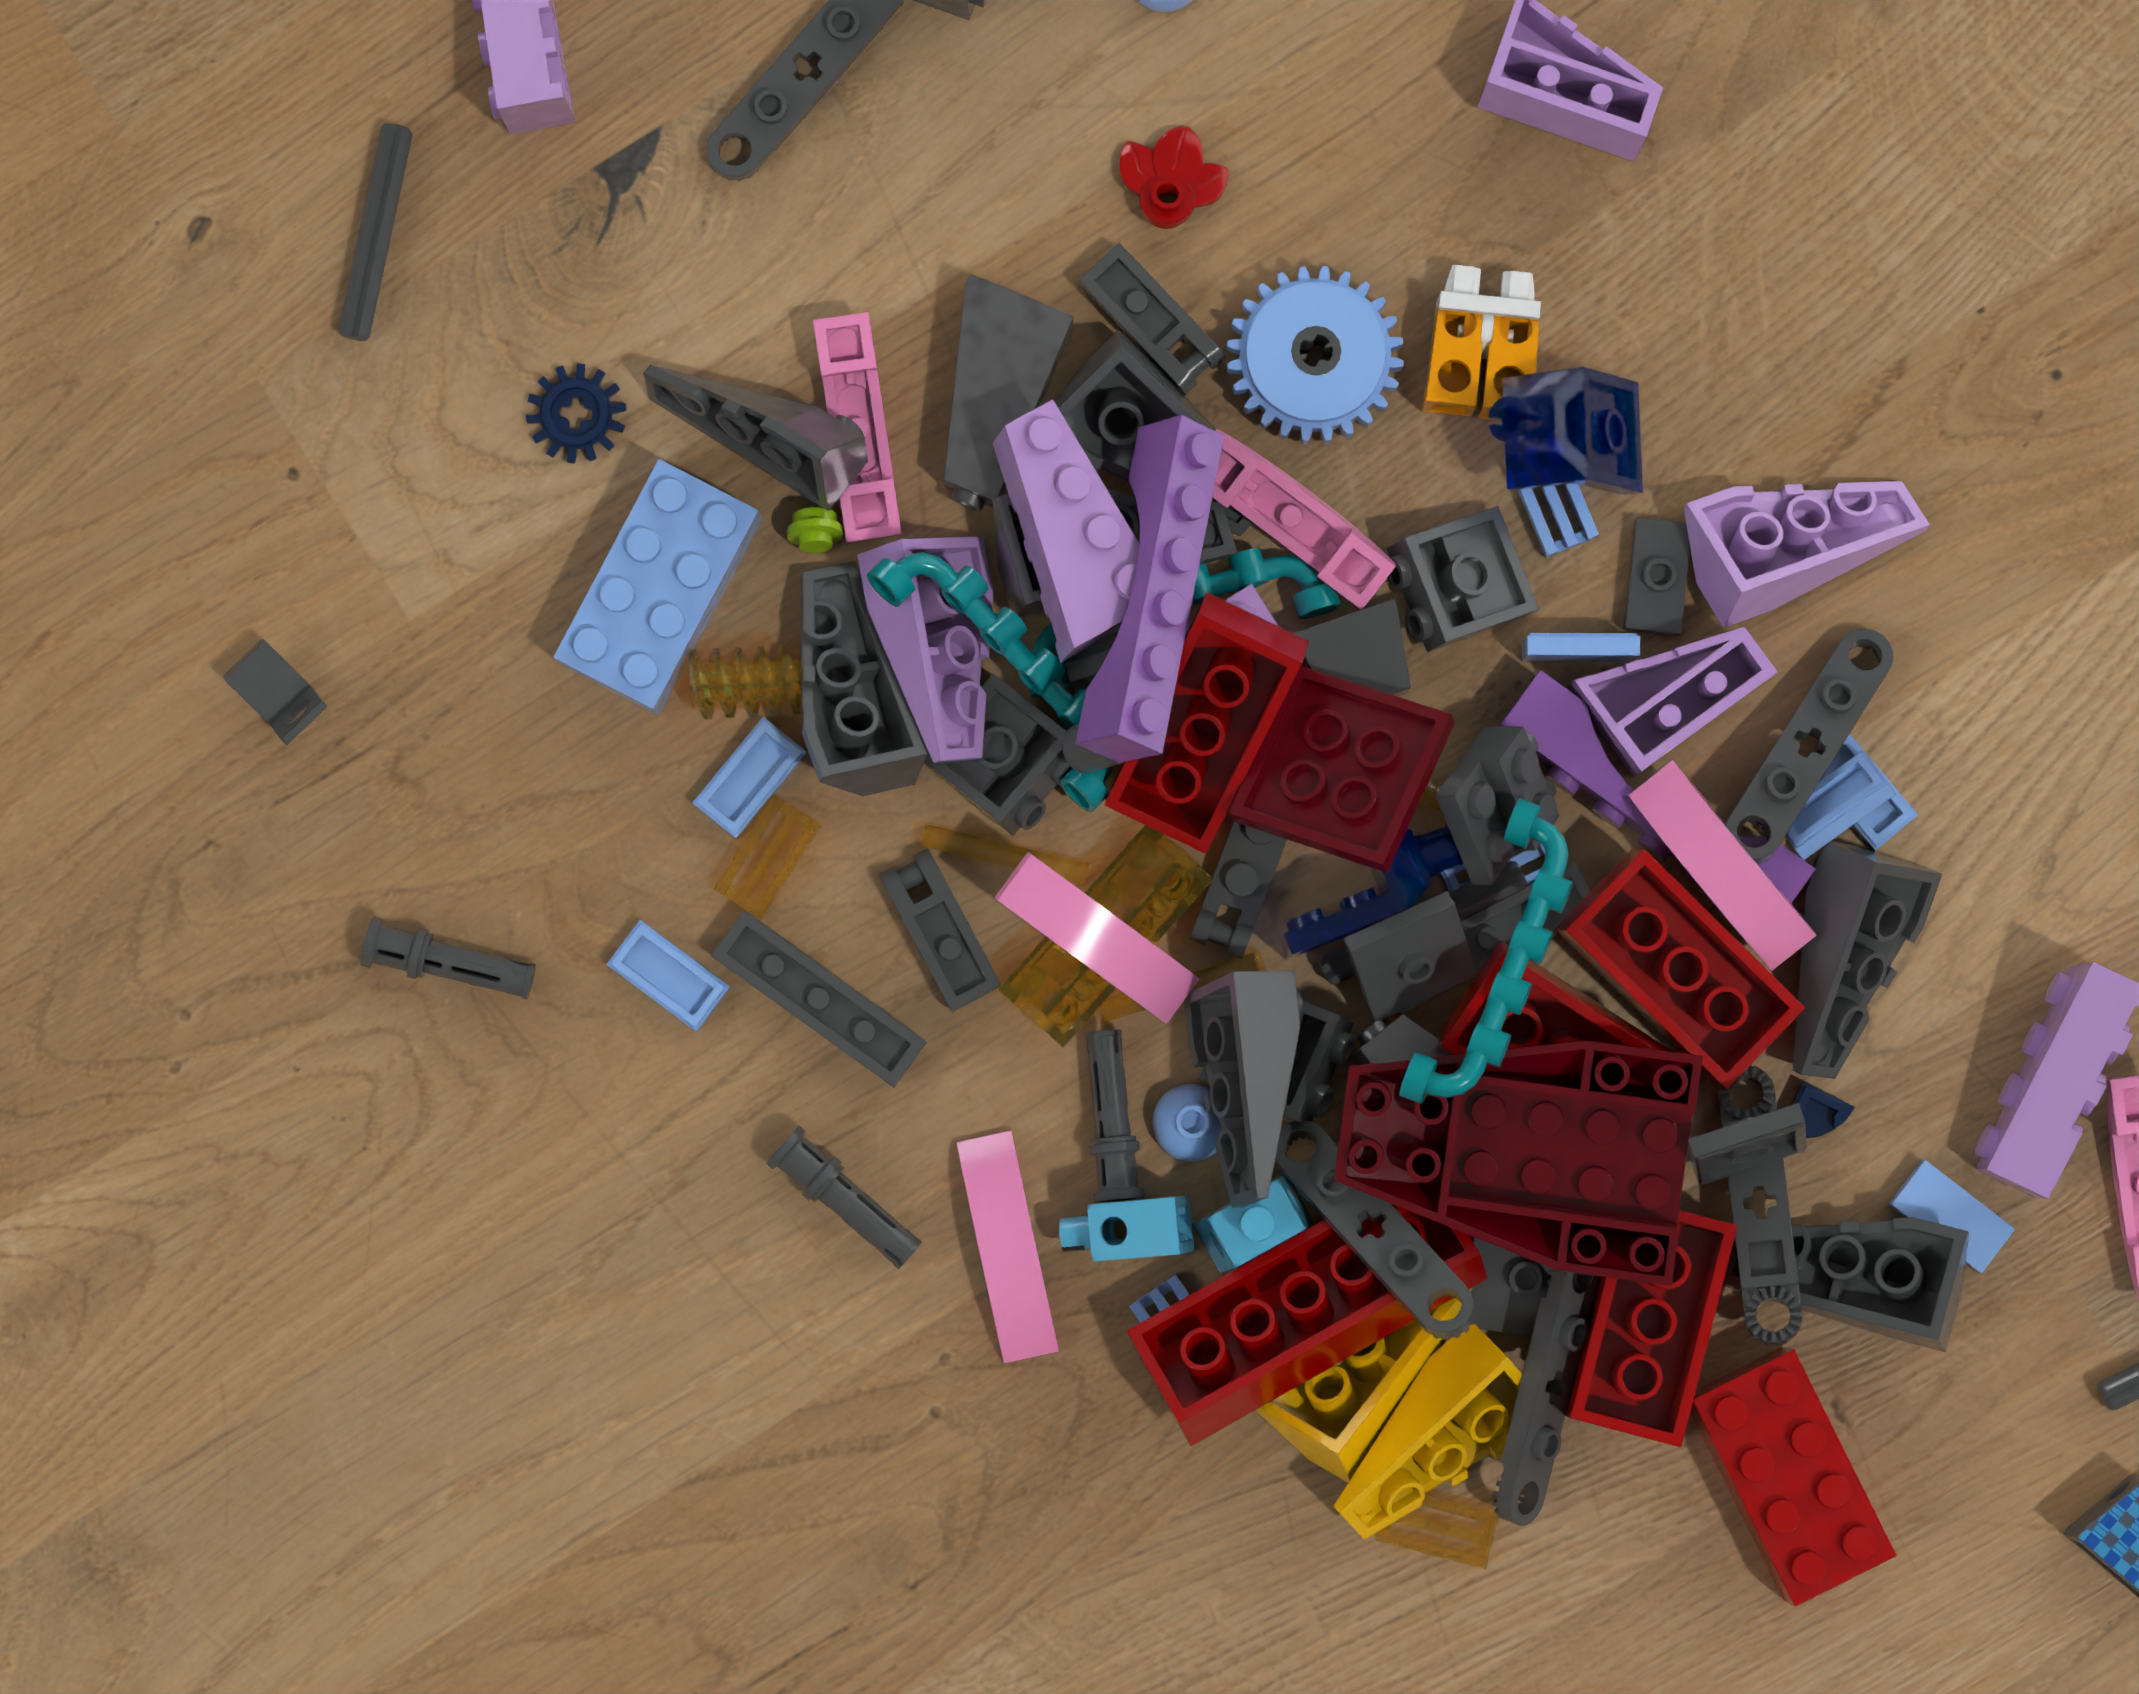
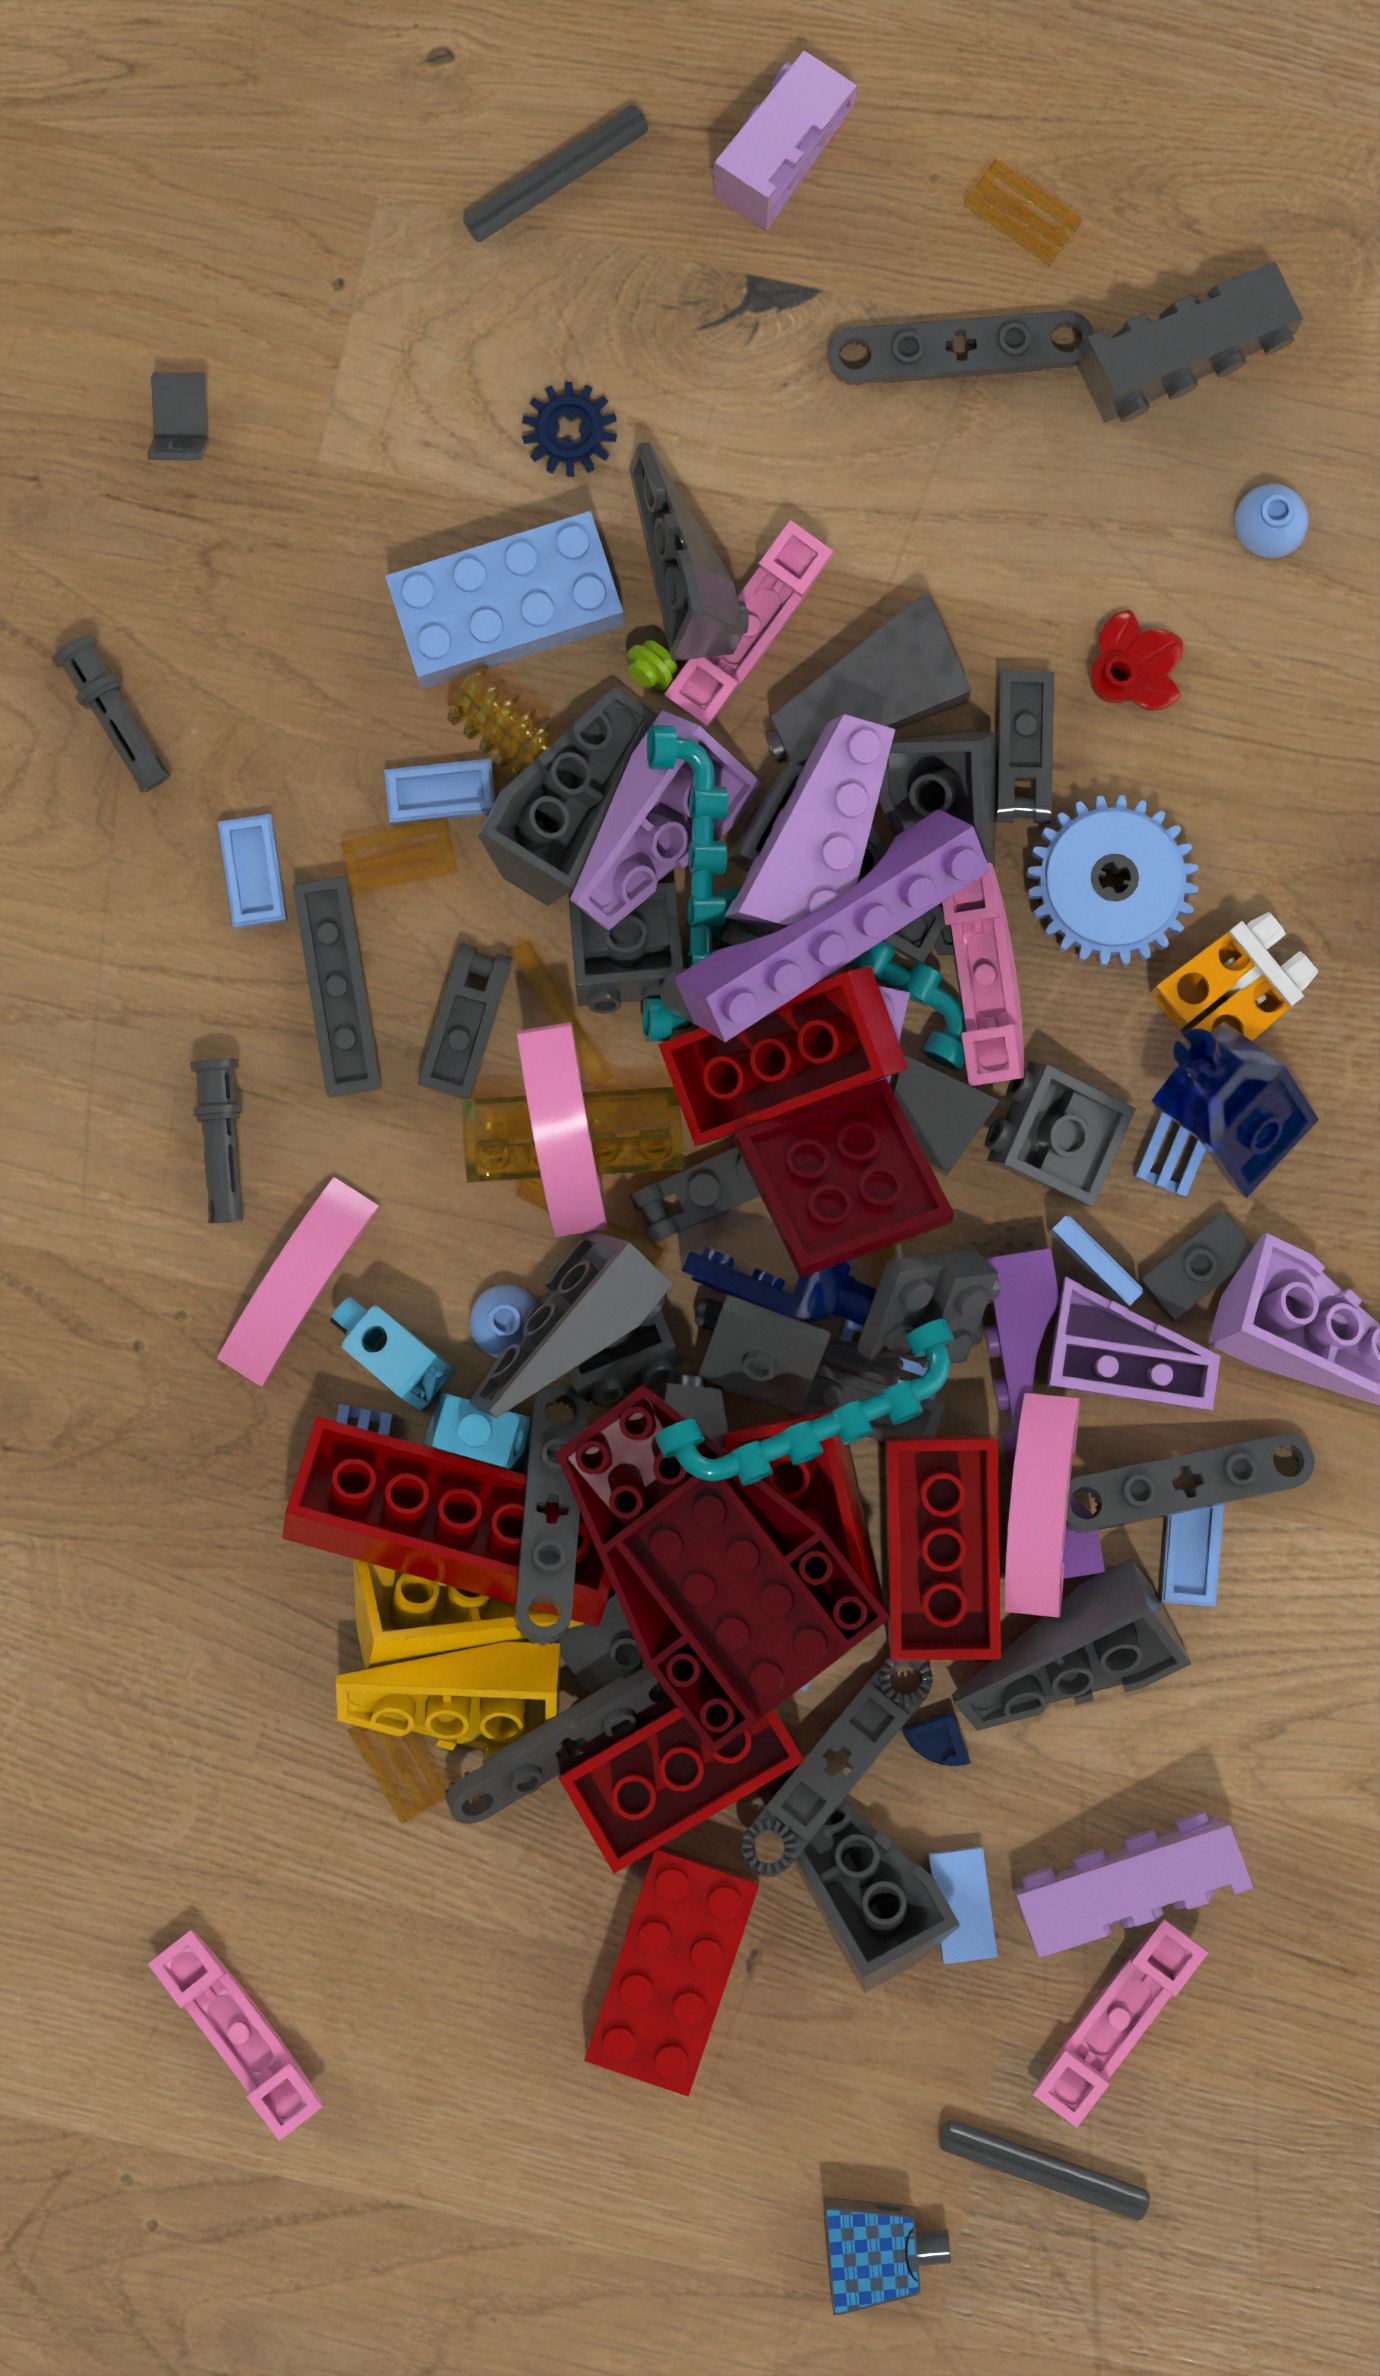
camera: 50 degrees right, 0 degrees up
(1113, 1142) = (438, 1284): dark grey pin -> none
(1748, 1144) = (866, 1712): dark grey plate -> none
(1838, 804) = (1165, 1543): light blue tile -> none

